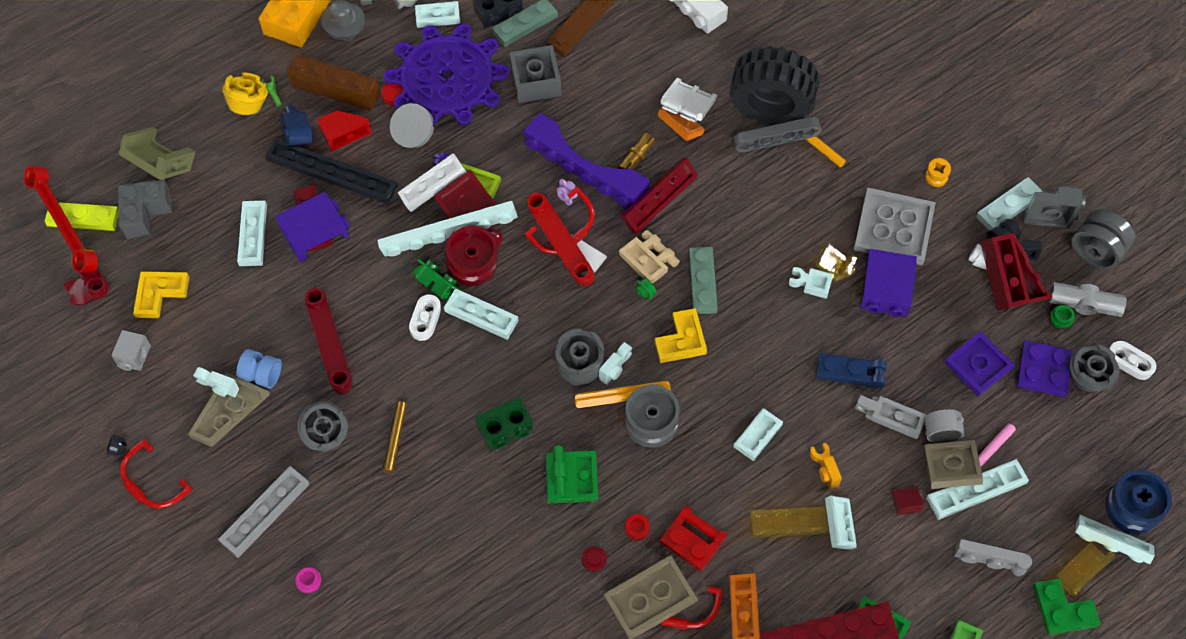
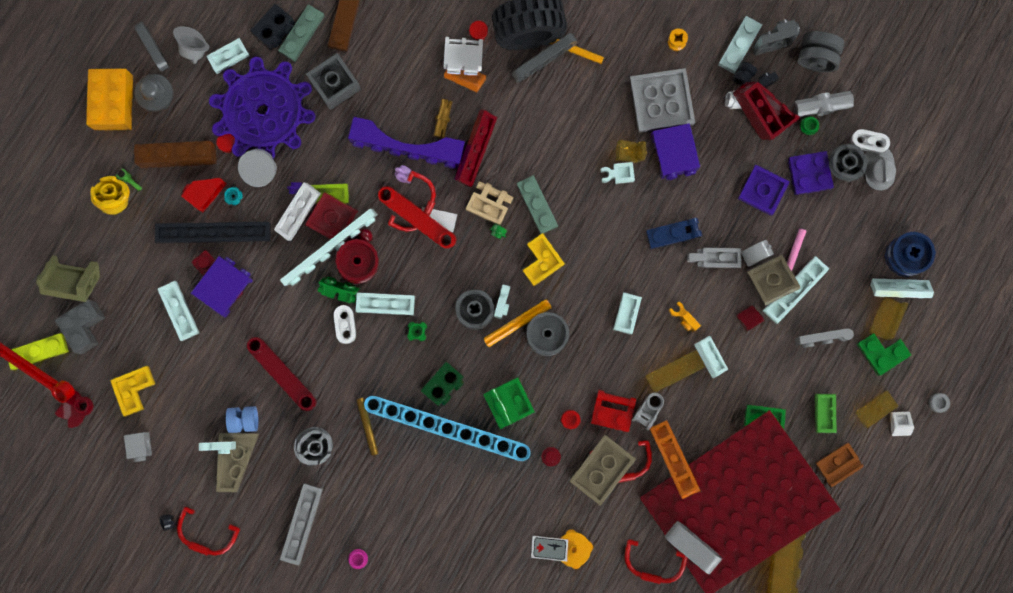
camera: 25 degrees left, 20 degrees up
(295, 126) = (165, 206): dark blue piece -> none
(369, 140) = (233, 191): none -> teal plate
(491, 484) = (438, 424): none -> medium azure beam
(505, 351) = (415, 326): none -> green plate
(717, 85) = (478, 30): none -> red tile
(734, 556) = (648, 411): none -> light grey piece
(1133, 398) = (880, 170): none -> light grey piece

